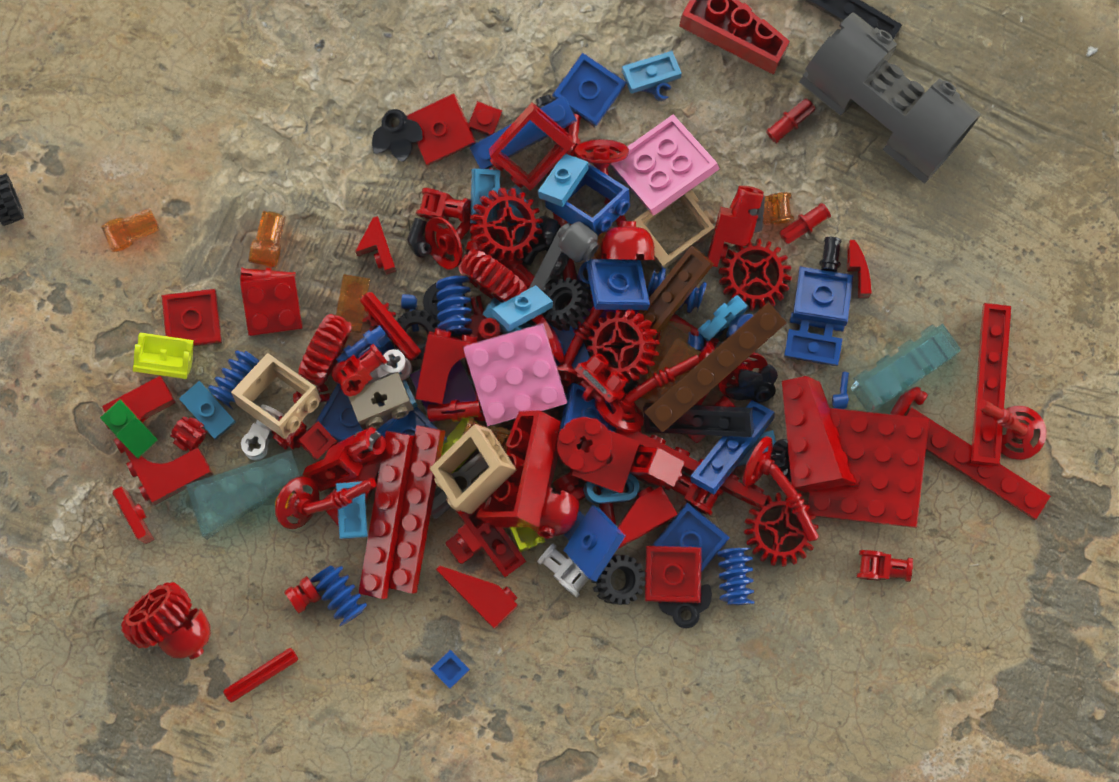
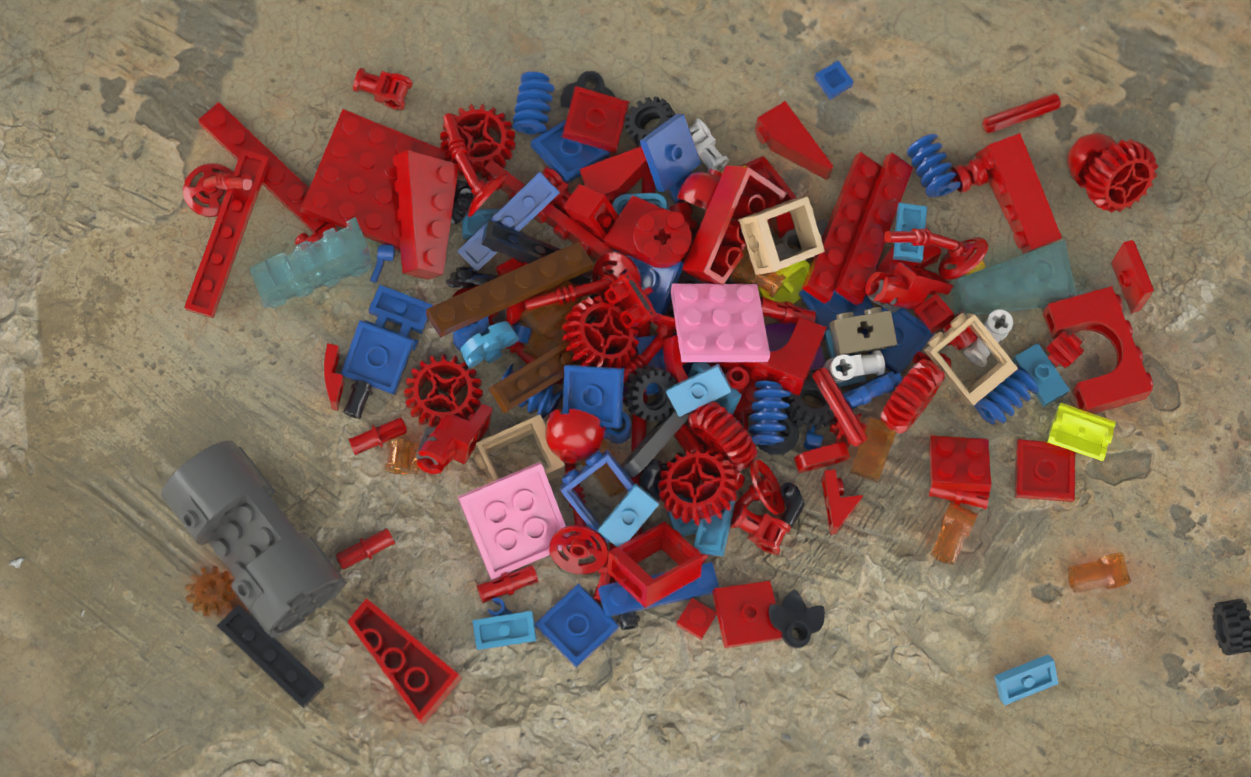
camera: 175 degrees left, 10 degrees down
(129, 429) = (1127, 358): green slope -> none
(184, 120) = (1026, 679): none -> dark azure plate
(253, 583) = (1019, 193): none -> red wedge
(357, 370) = (884, 360): red connector -> none
(399, 285) = (821, 457): none -> red beam
(464, 544) = (800, 186): red bracket -> none
(578, 241) = (626, 443): dark grey head -> none
(658, 114) = (507, 583): none -> red pin
(924, 59) = (199, 597): none -> clear orange gear

